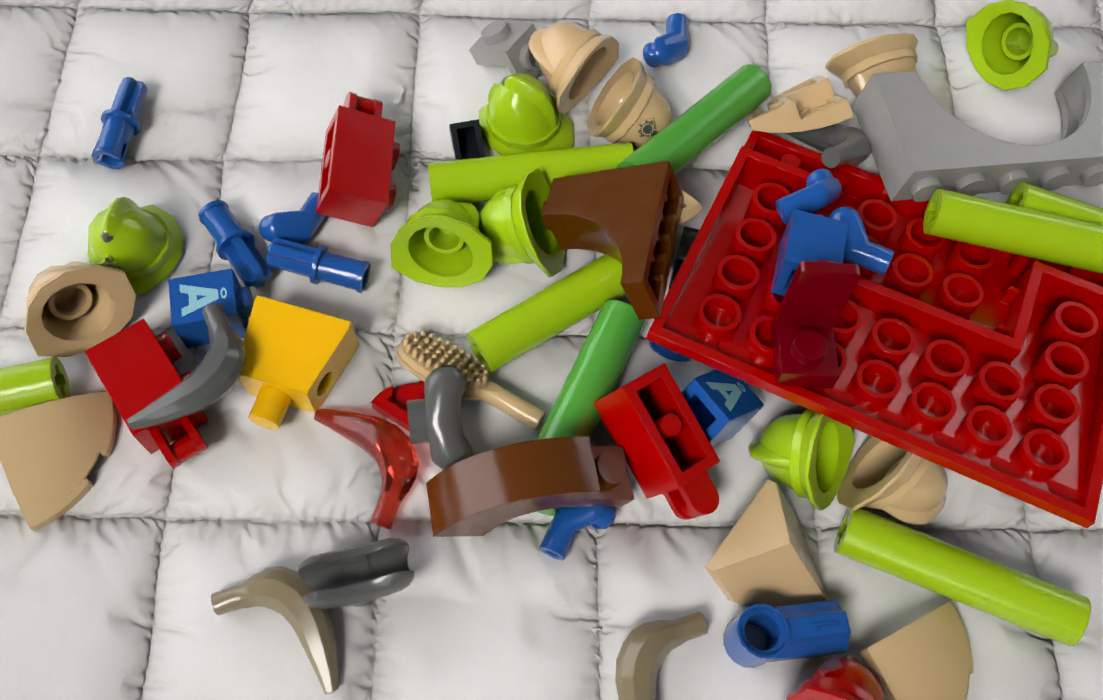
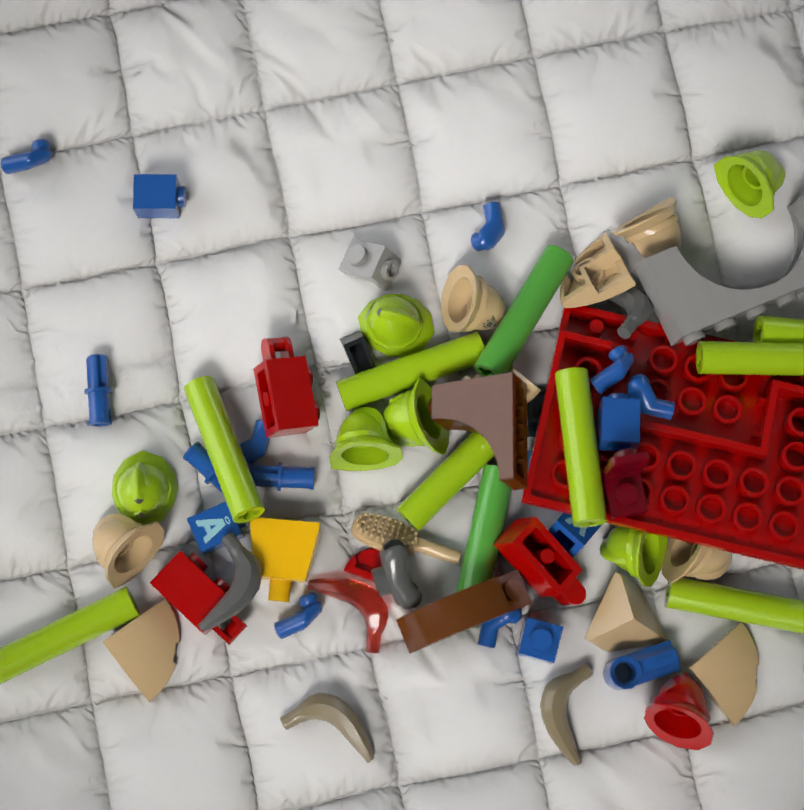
camera: 10 degrees left, 15 degrees up
(250, 212) = (224, 449): none -> lime piece
(286, 456) = (301, 619): none -> blue arm
(356, 574) = (369, 689): dark grey piece -> none
(572, 60) = (418, 271): tan piece -> none
(634, 557) = (539, 640): none -> blue brick
(749, 280) = (580, 447): none -> lime piece

